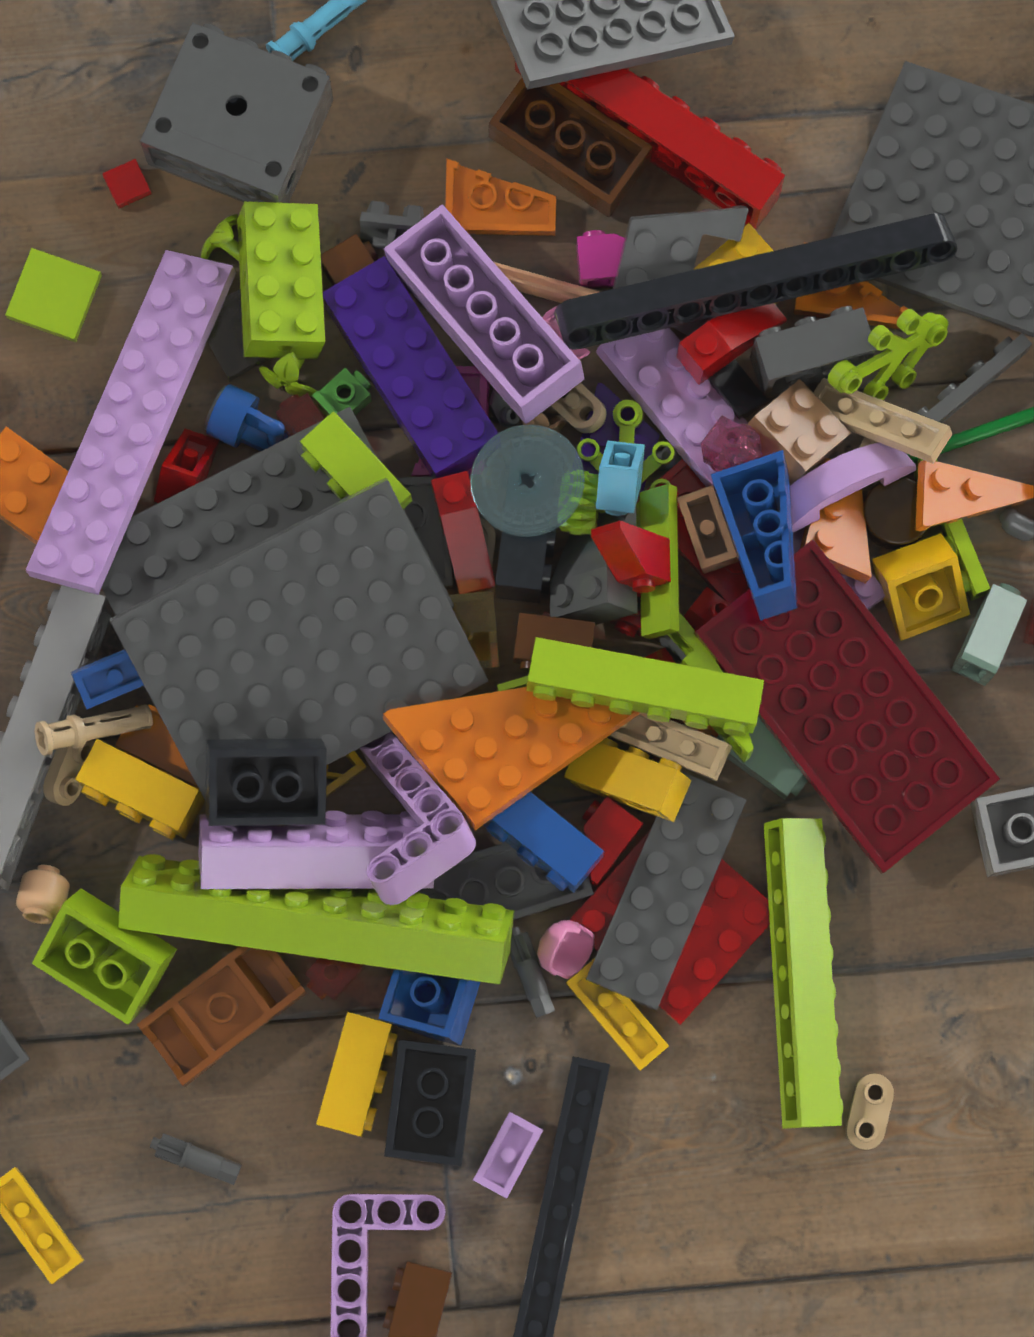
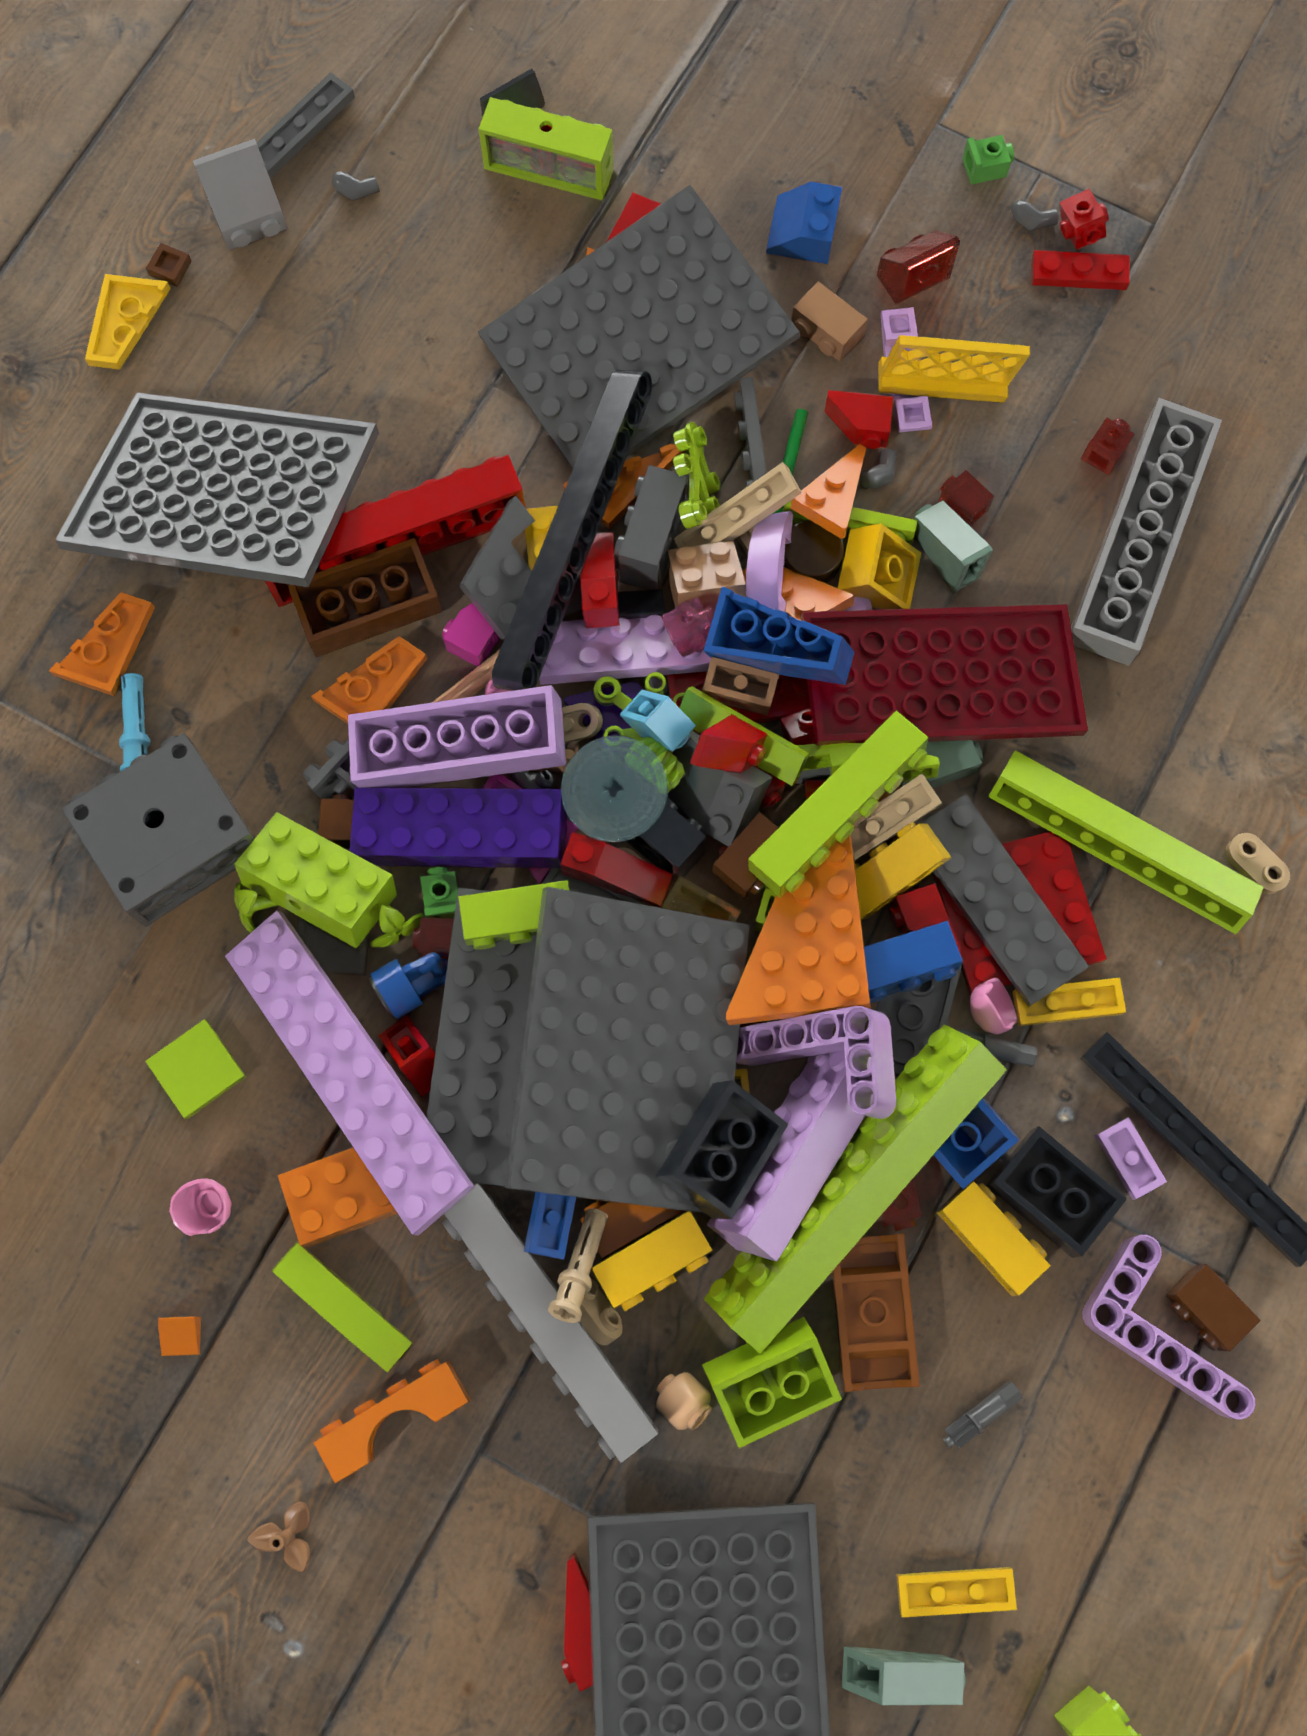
camera: 55 degrees left, 5 degrees down
(126, 183) = (149, 952): red tile -> none

